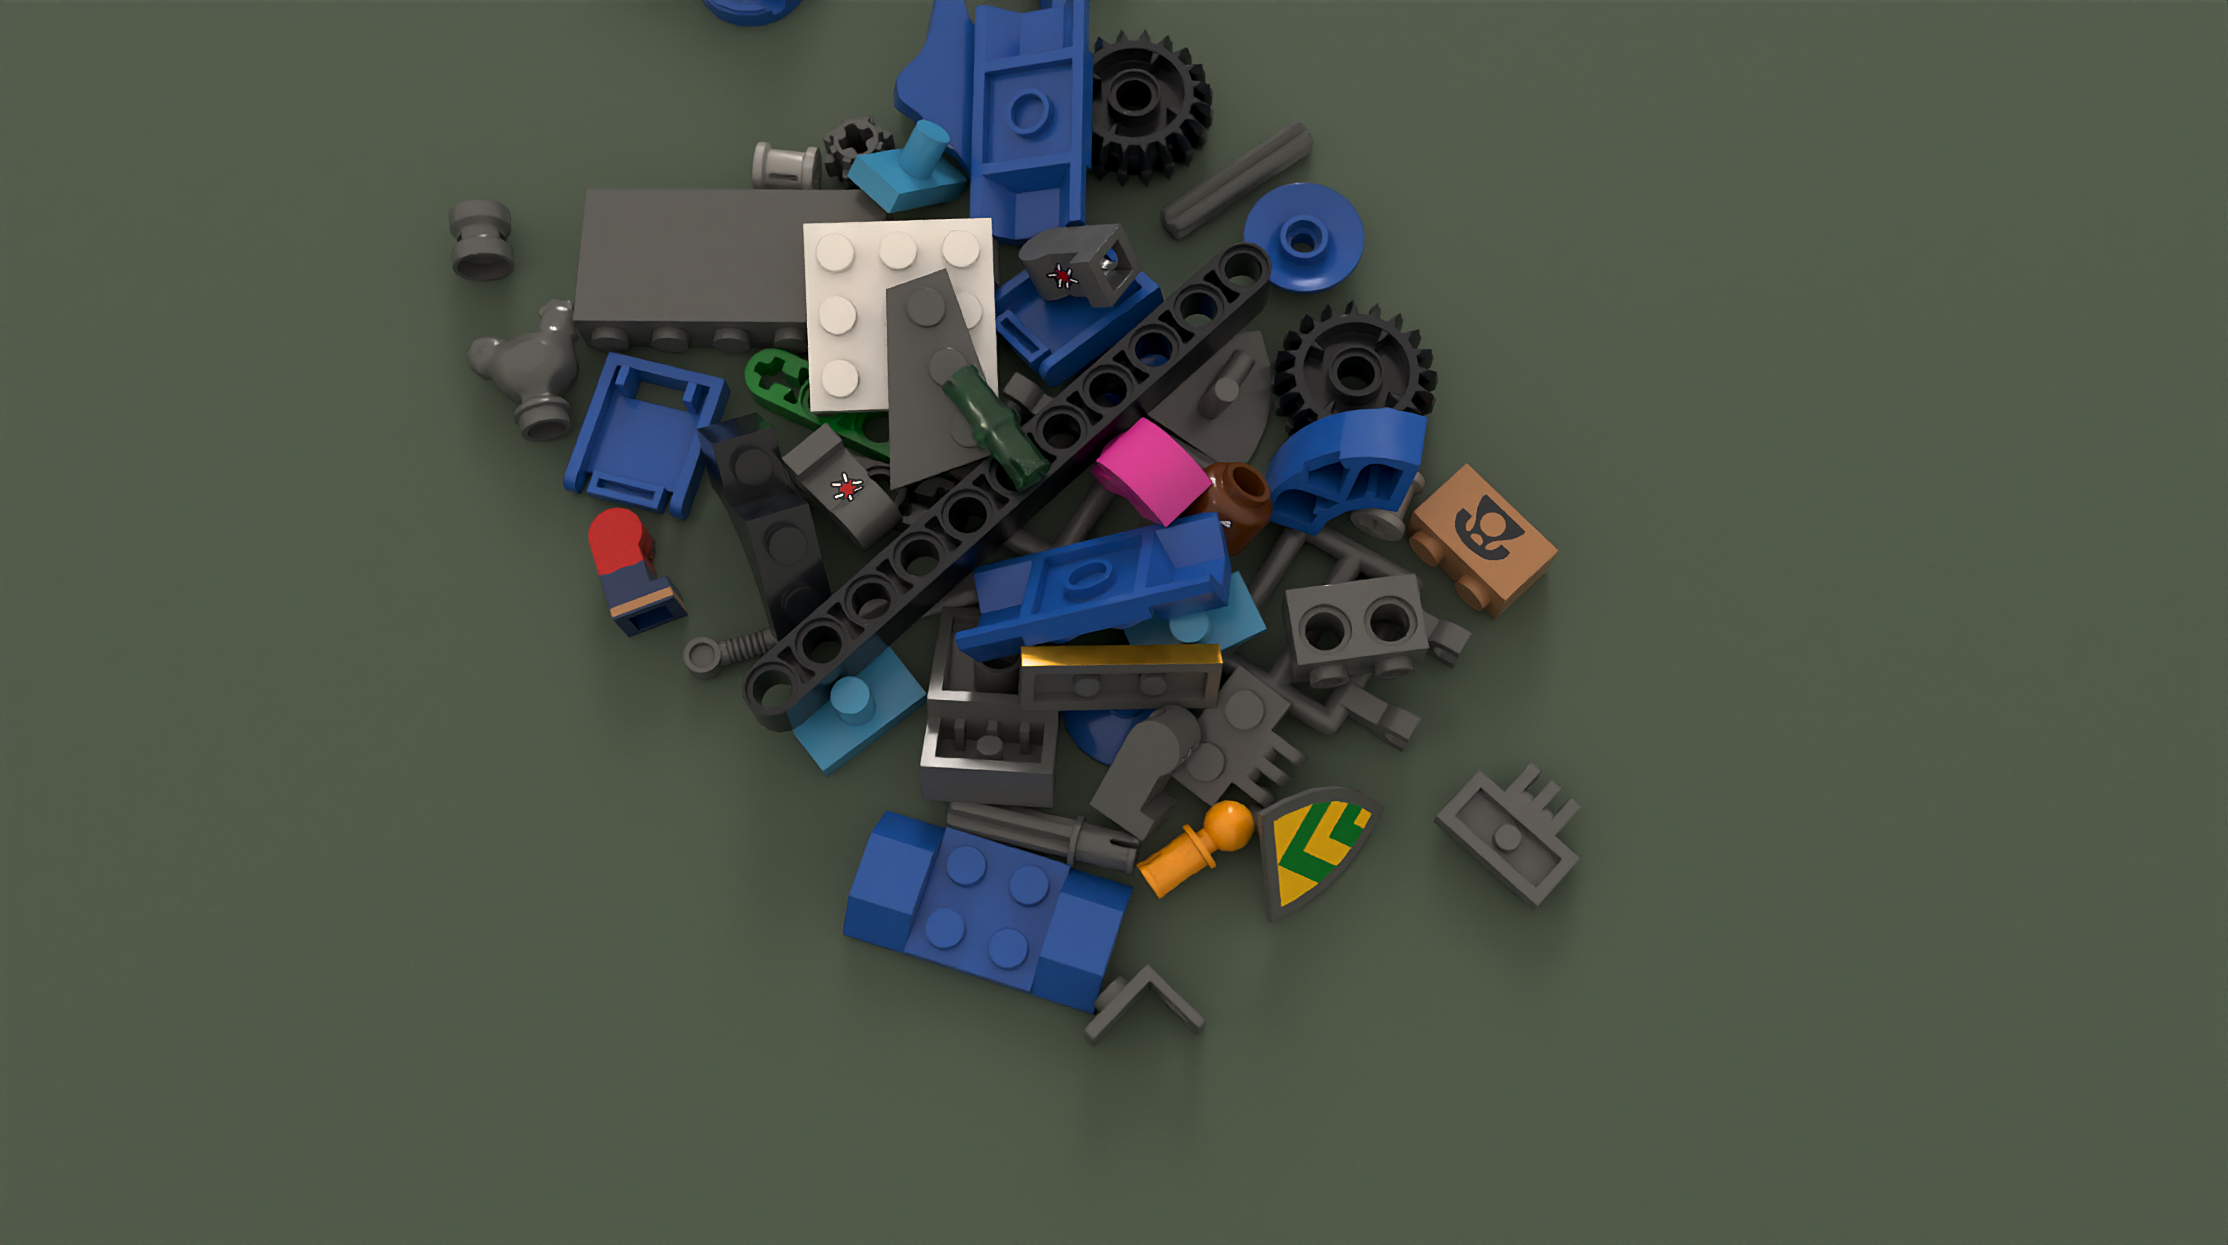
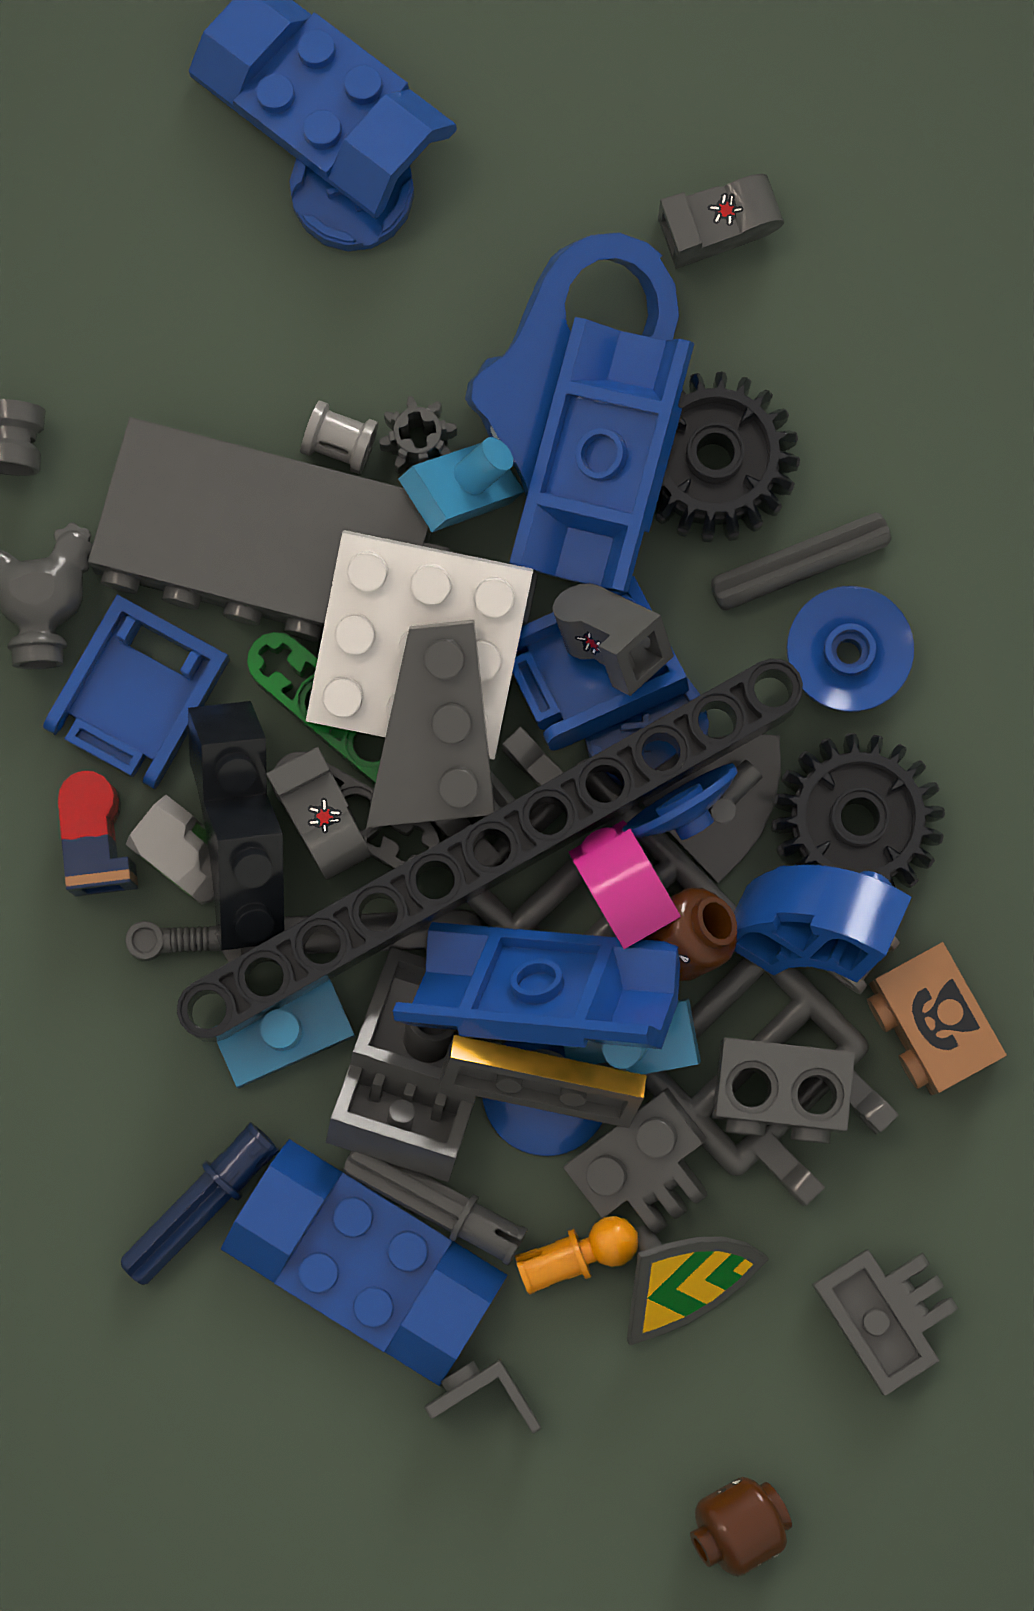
camera: 10 degrees right, 10 degrees up
(711, 563) = (175, 847): none -> light grey rock
(829, 863) = (199, 1203): none -> dark blue axle
(996, 427) = (483, 804): clear green pin -> none
(1136, 779) = (532, 1184): dark grey leg -> none
(1193, 393) = (684, 807): none -> blue dish
(1432, 1073) = (741, 1526): none -> reddish brown head

